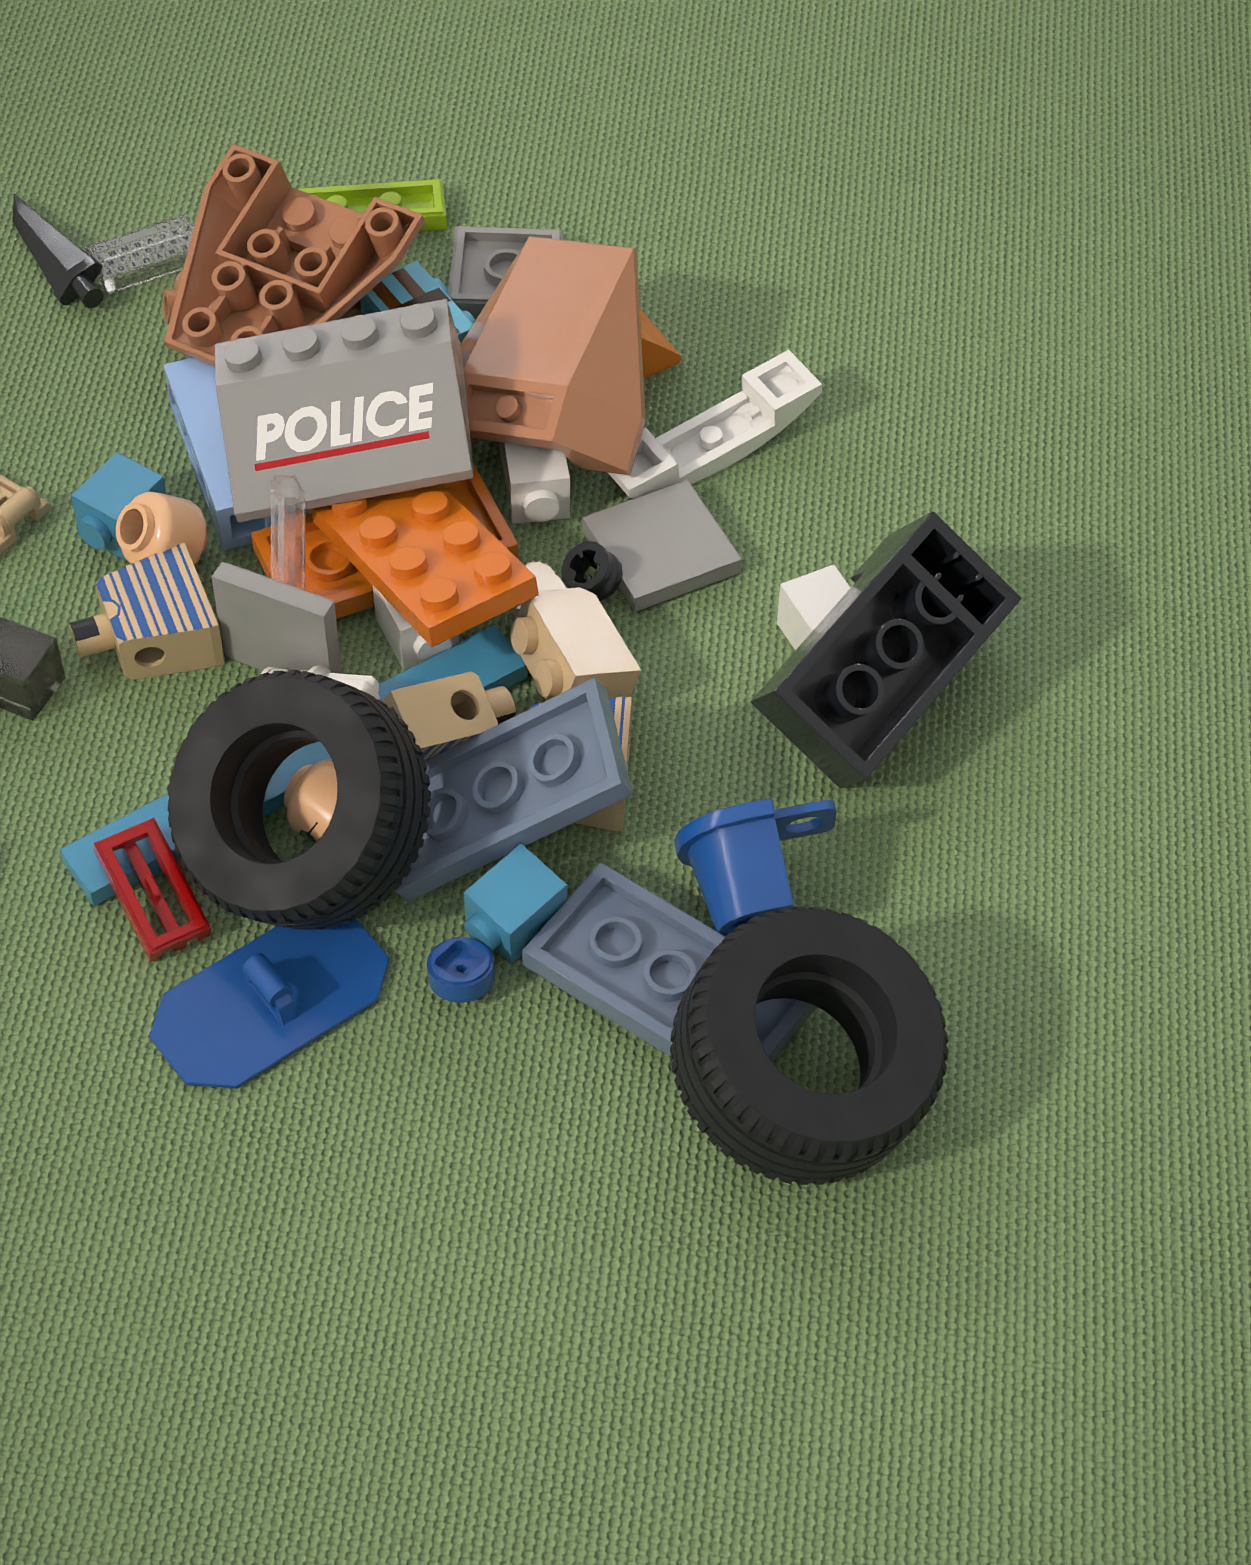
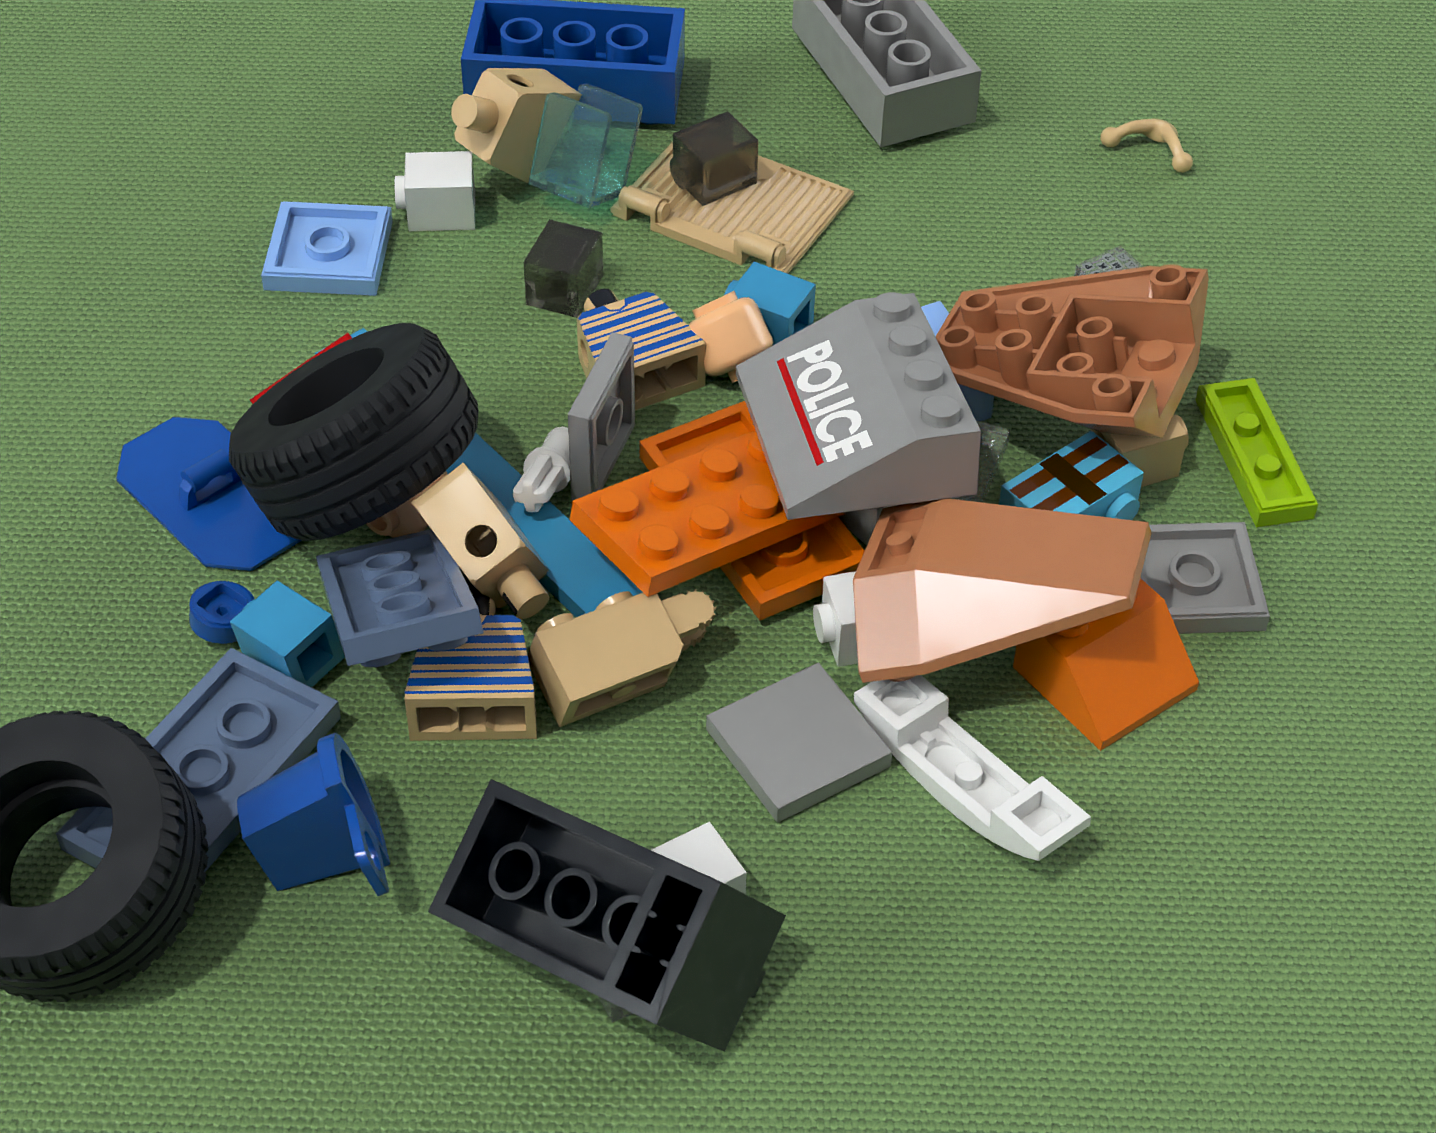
camera: 85 degrees right, 5 degrees down
(62, 261) = (1093, 241): black bar -> none
(288, 531) = (687, 398): clear tile -> none
(587, 555) = (737, 674): black bush -> none

